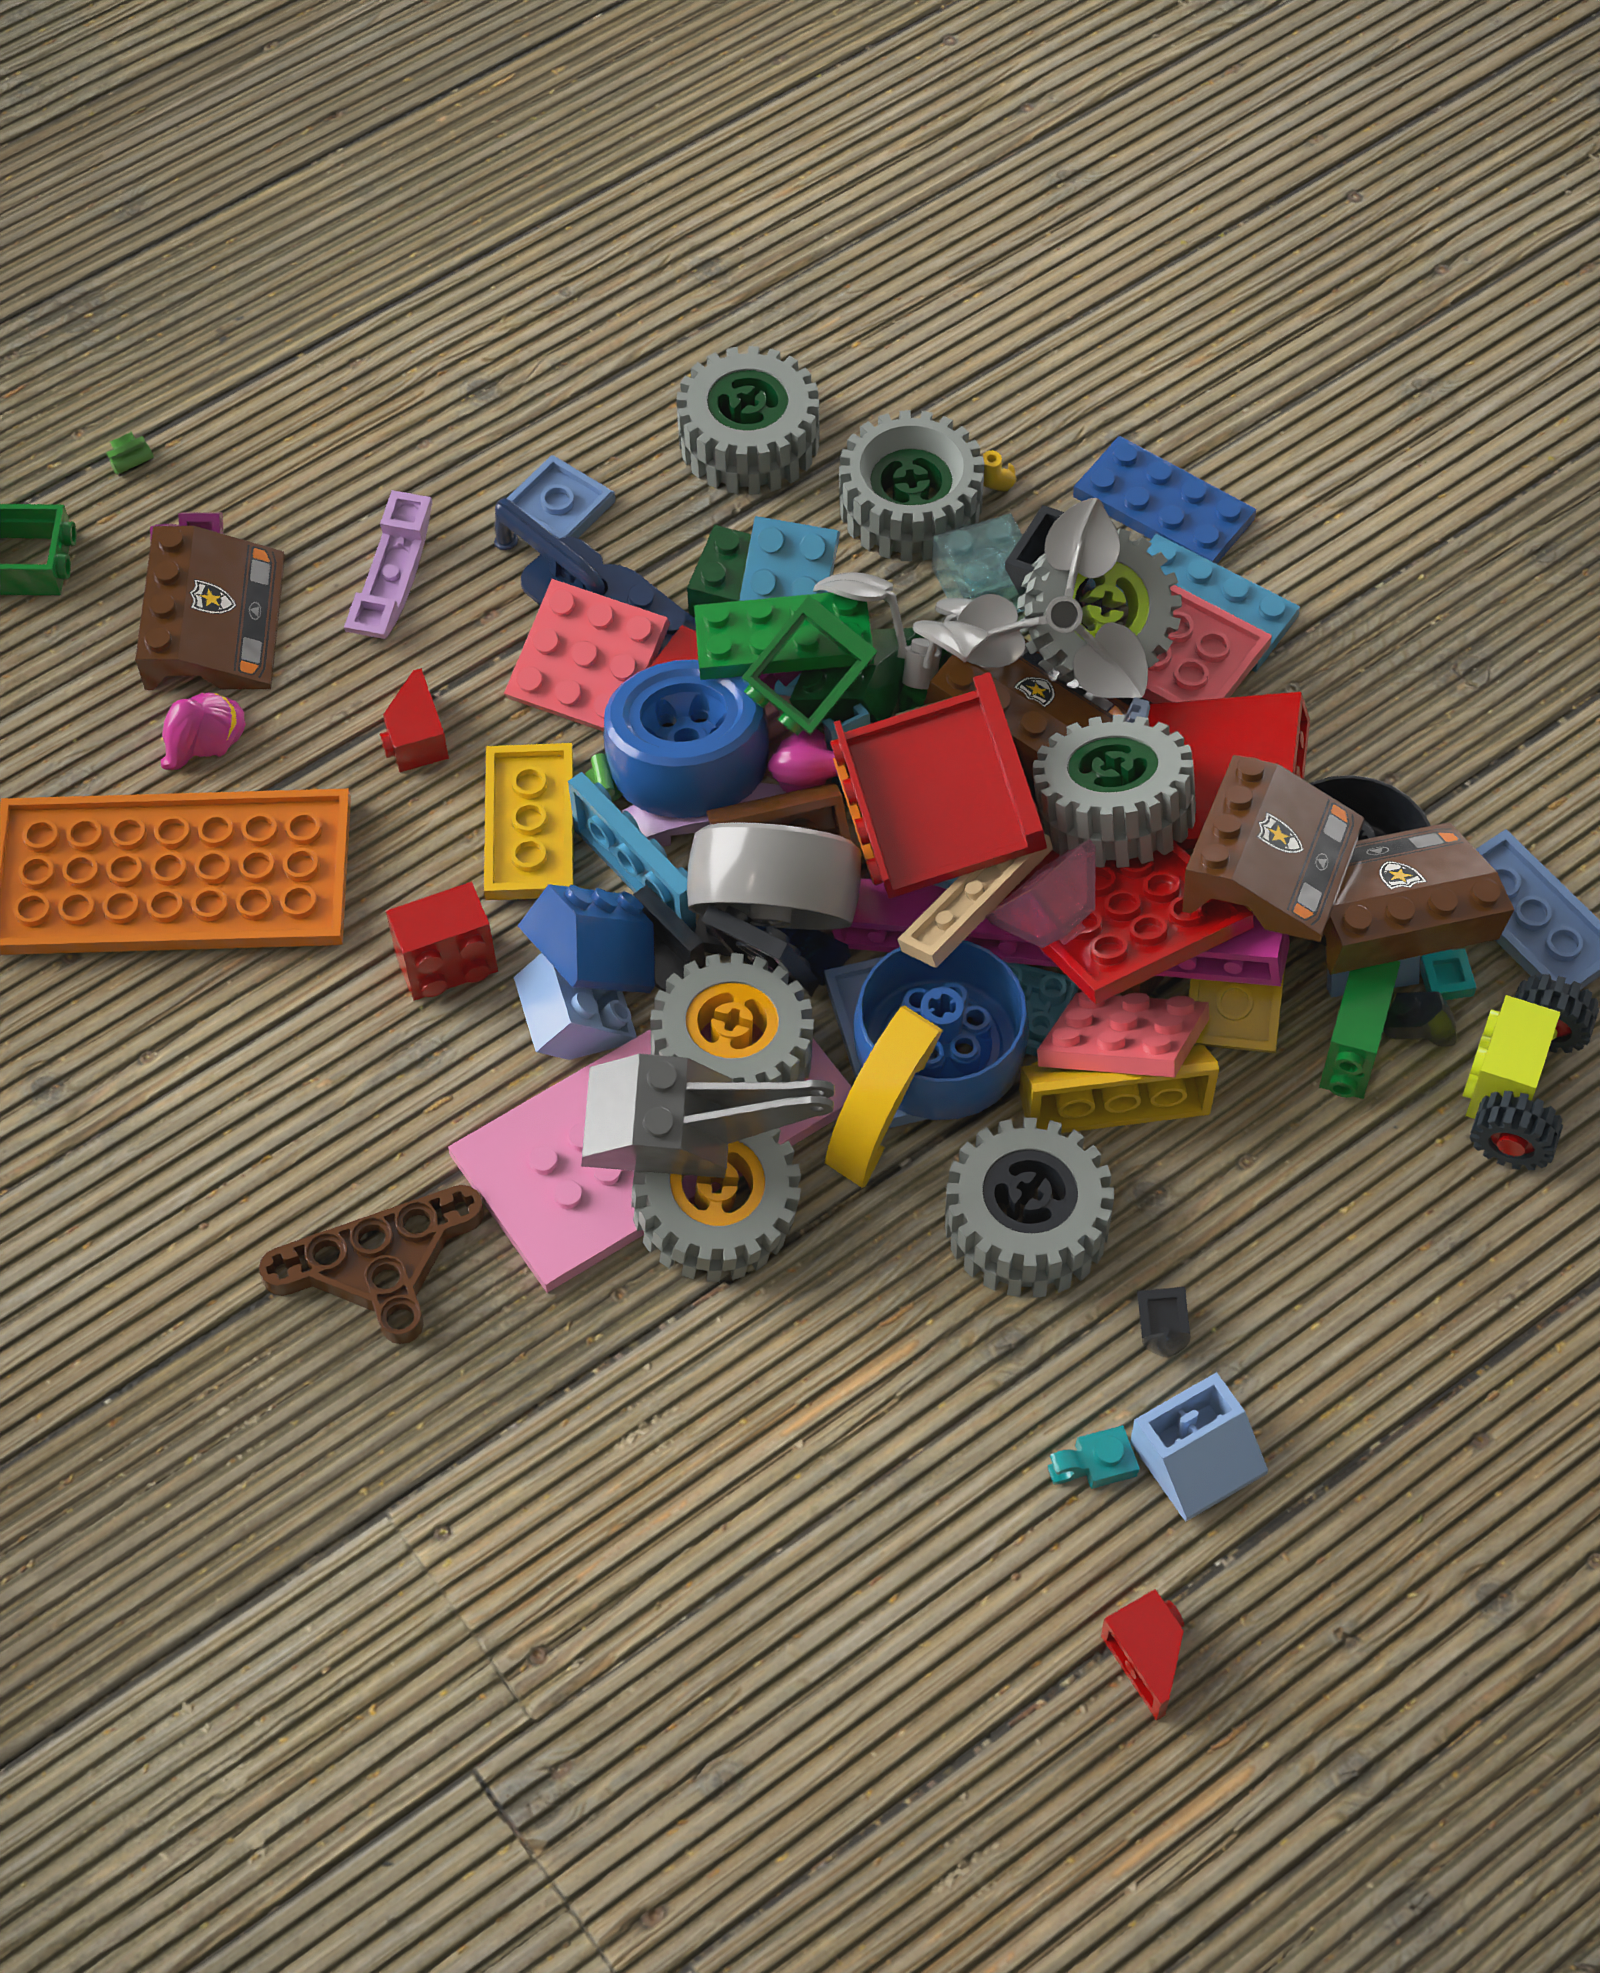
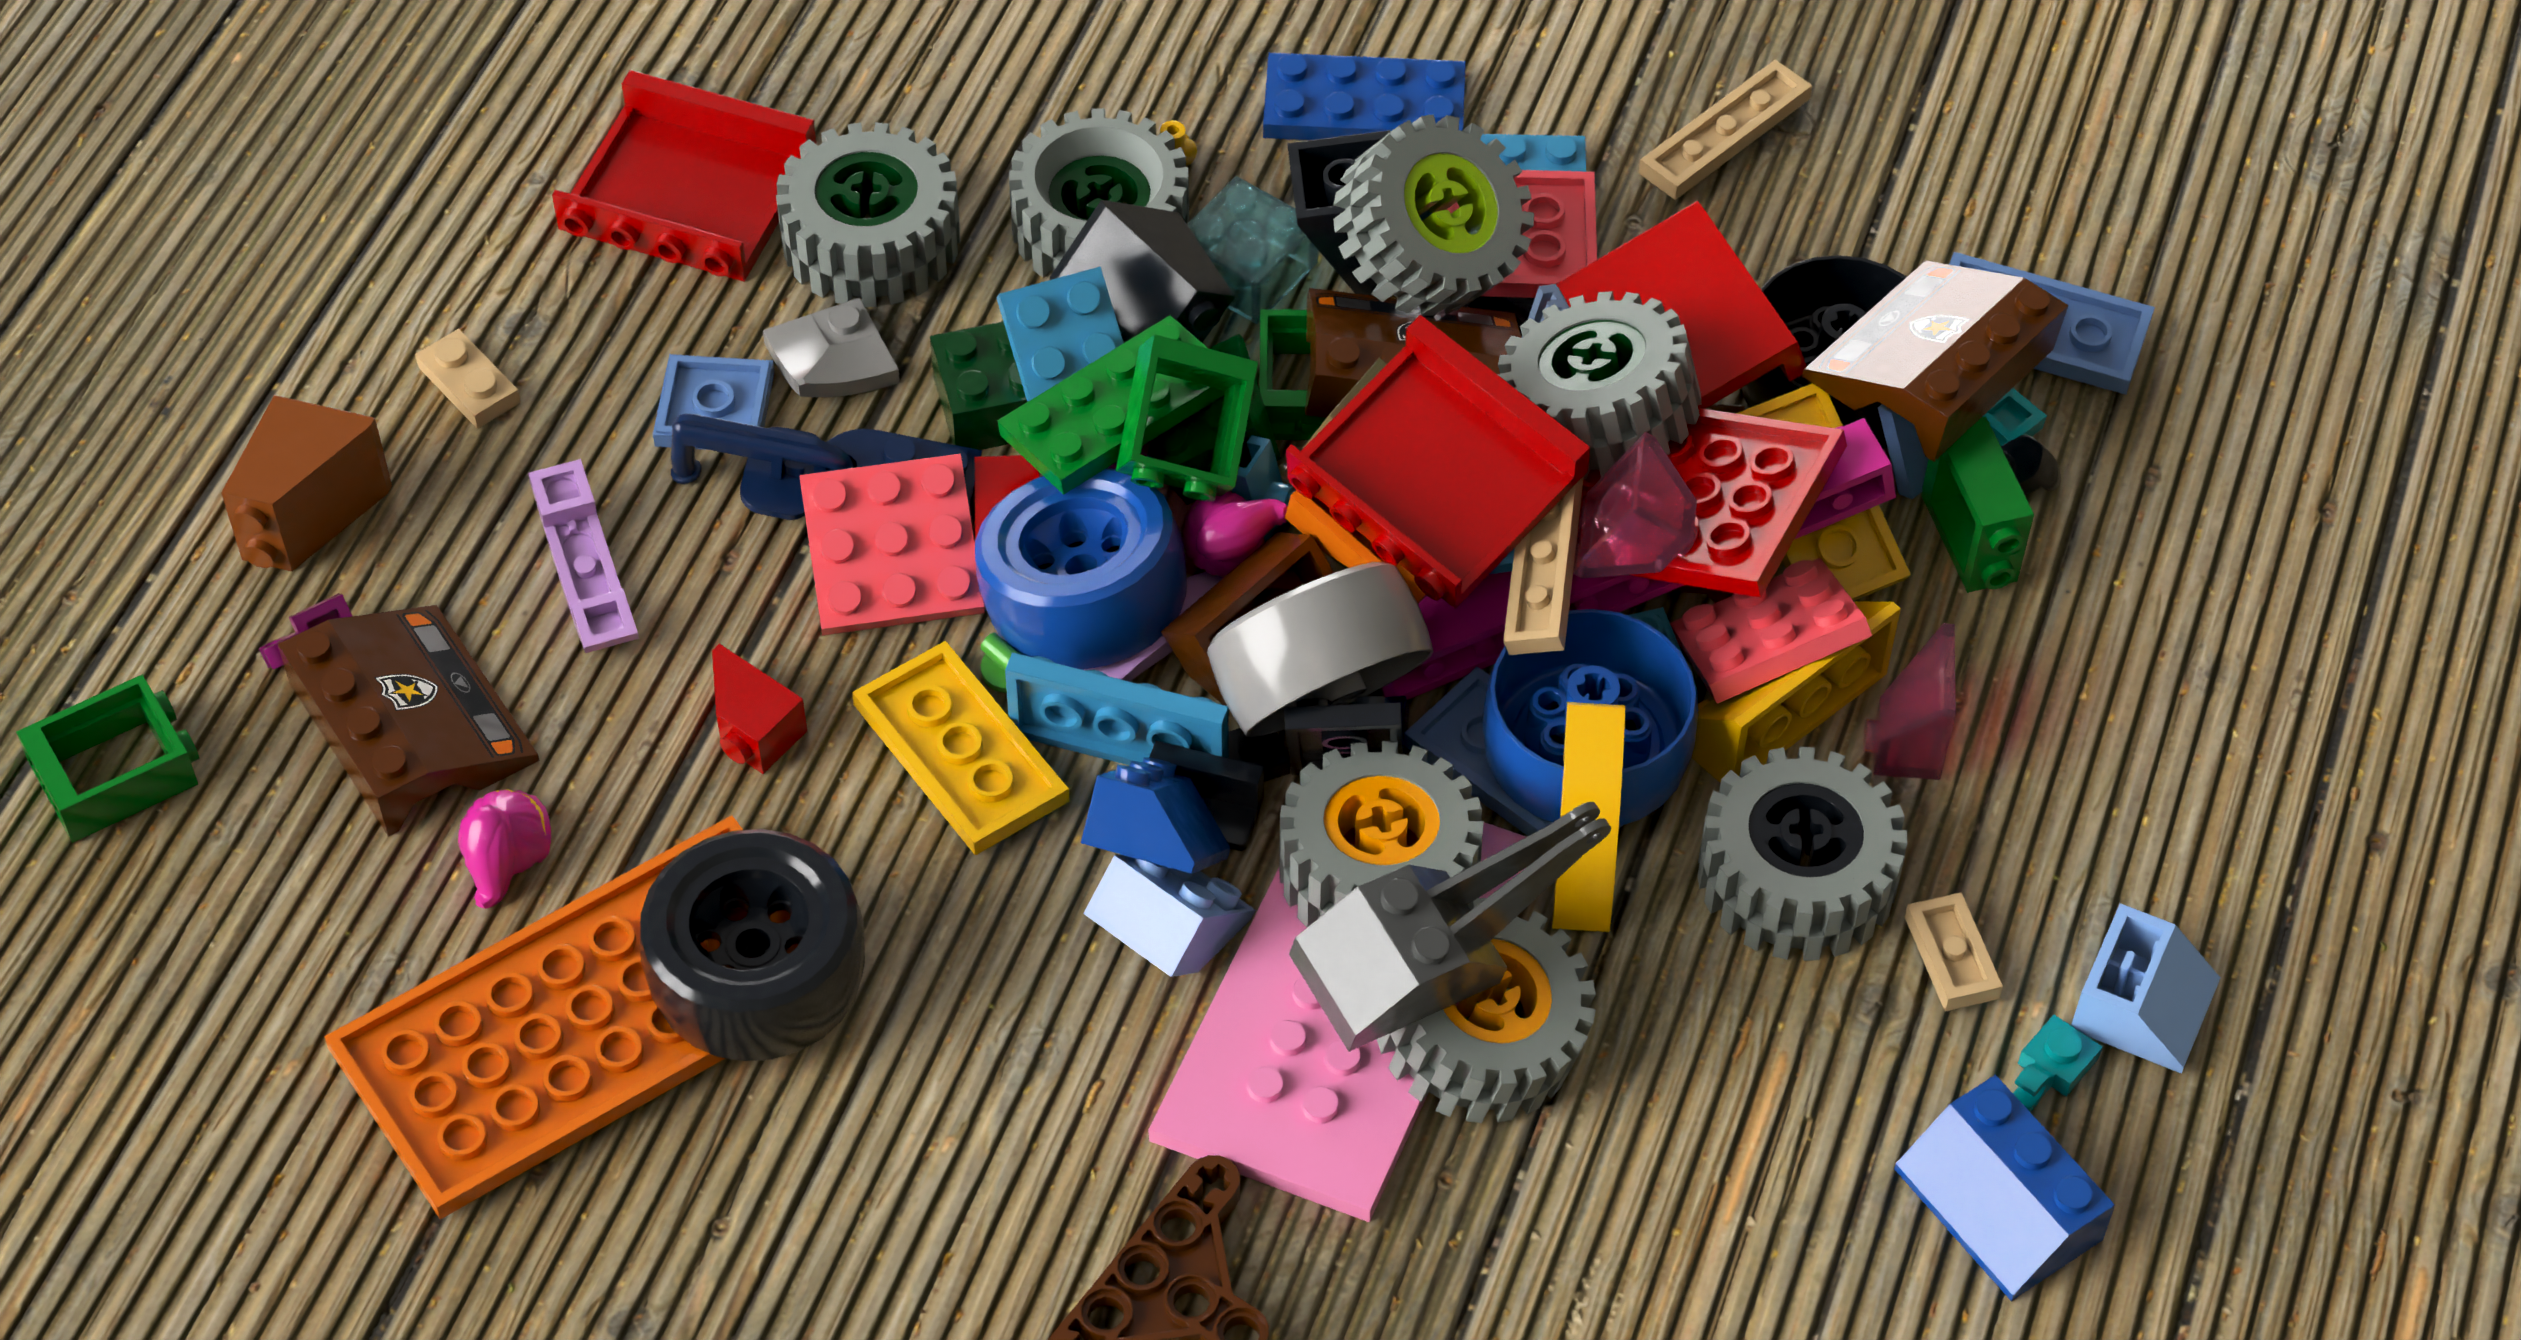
camera: 35 degrees left, 5 degrees down
(128, 452) = (157, 586): bright green plate -> none
(249, 426) = (303, 481): none -> dark orange slope
(289, 914) = (749, 993): none -> black wheel
(416, 408) = (468, 378): none -> tan plate
(442, 941) = (981, 915): red brick -> none
(651, 335) = (685, 177): none -> red panel
(658, 506) = (832, 352): none -> light grey plate
(890, 541) = (1149, 268): none -> black slope
(924, 653) = (1276, 354): light grey plant -> none
(983, 1527) = (2005, 1188): none -> slope
(1087, 1339) = (1953, 951): none -> tan plate
(1114, 659) = (1494, 258): light grey plant -> none
(1147, 1646) = (2254, 1213): red slope -> none
(1164, 1320) = (2012, 892): black plate -> none
(1193, 1153) = (1916, 714): none -> clear pink slope
(1273, 849) = (1807, 359): reddish brown piece -> none
(1410, 652) = (1725, 129): none -> tan plate
(1509, 1066) = (2153, 472): brick -> none

